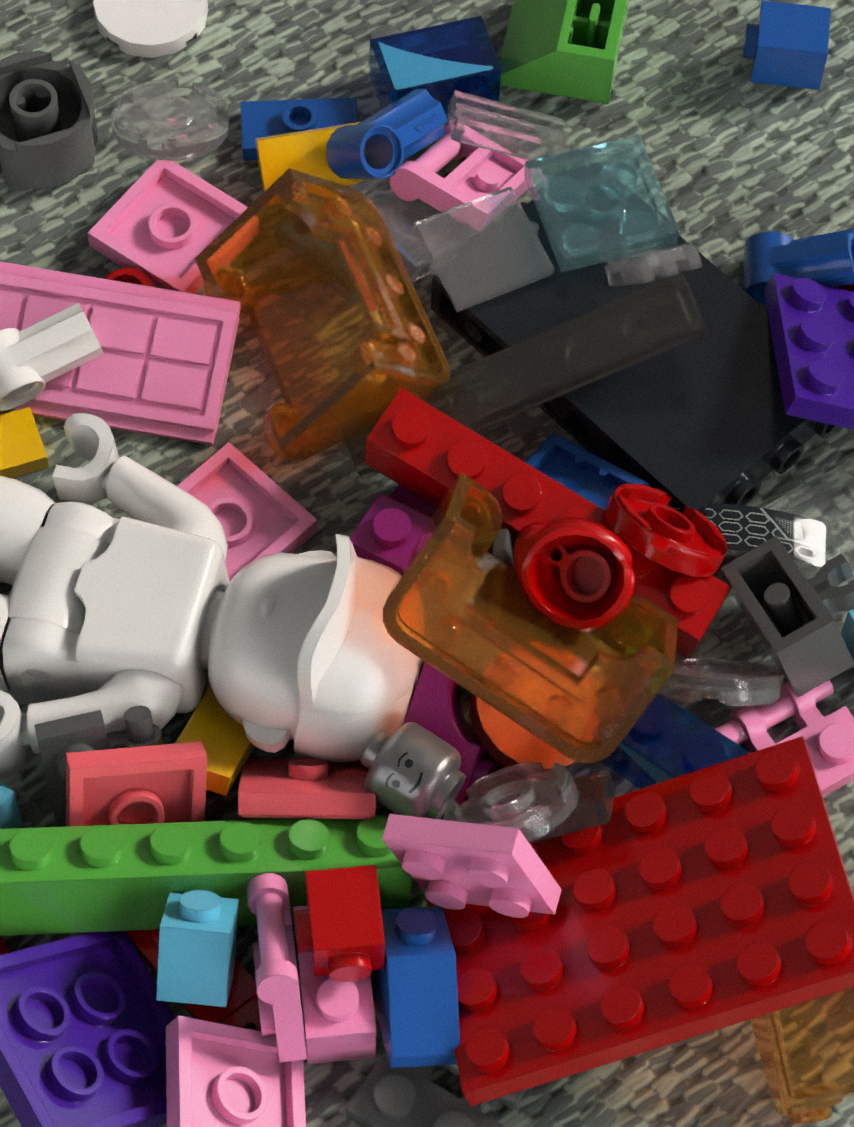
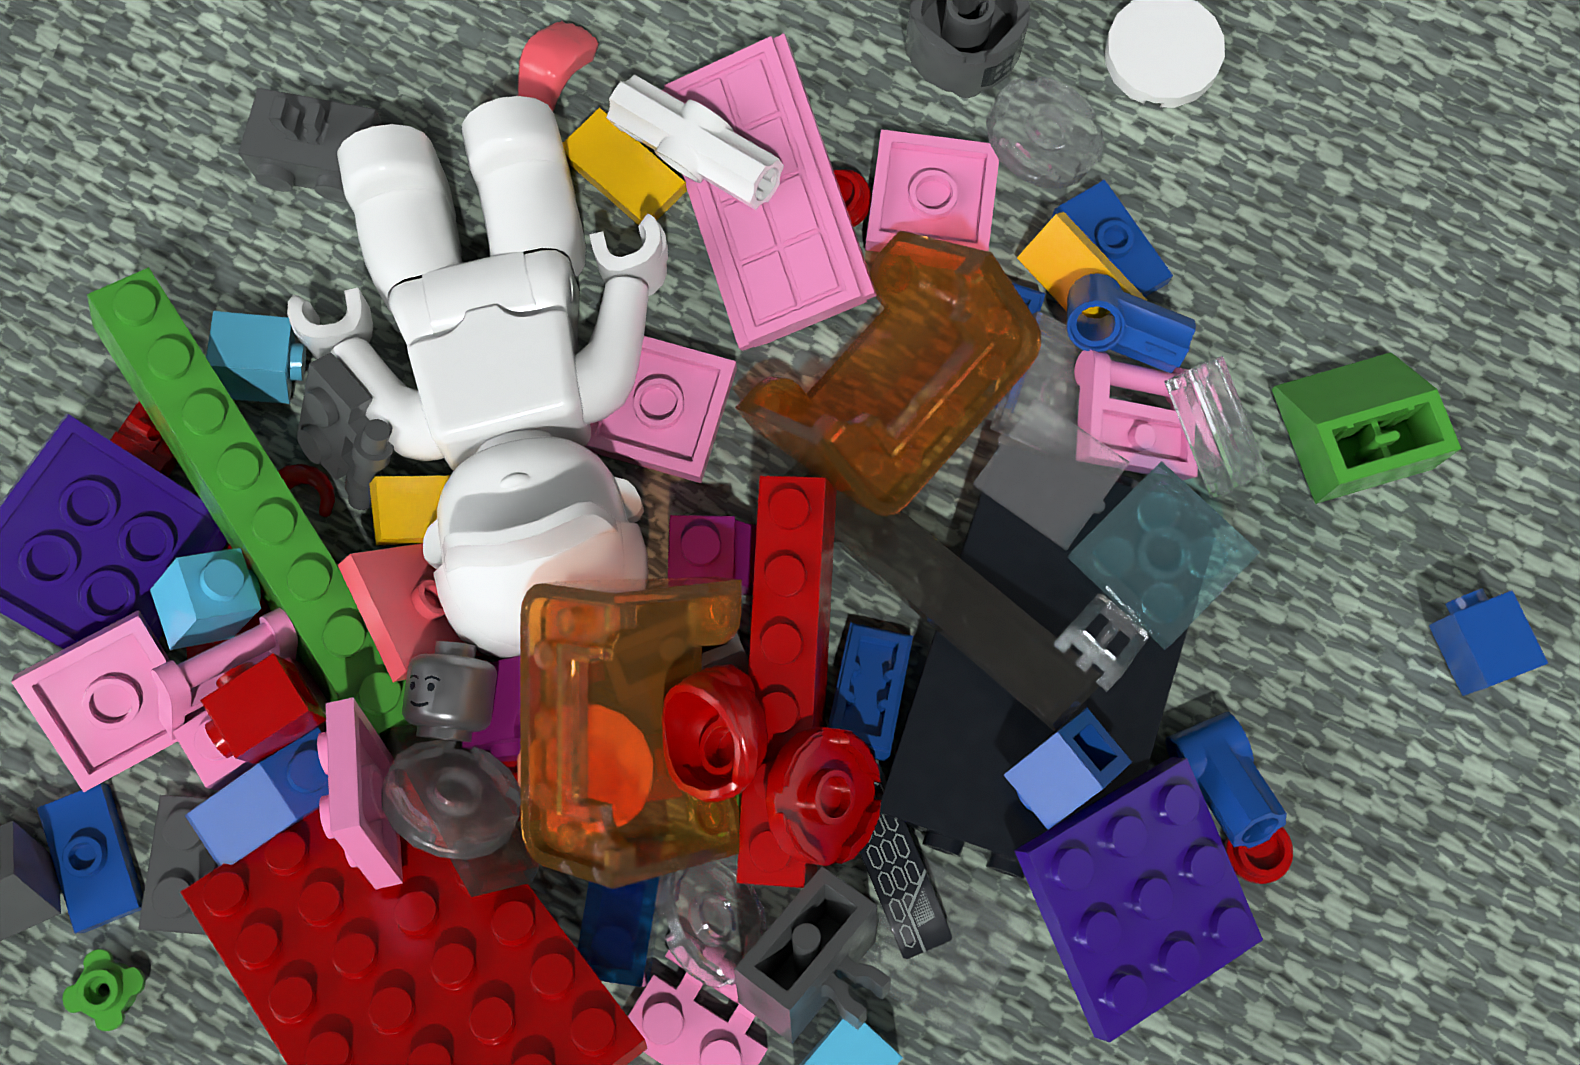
camera: 65 degrees right, 15 degrees up
(136, 785) = (320, 473): coral plate -> none
(438, 60) = (1247, 326): clear blue brick -> none
(741, 346) = (1067, 769): none -> brick

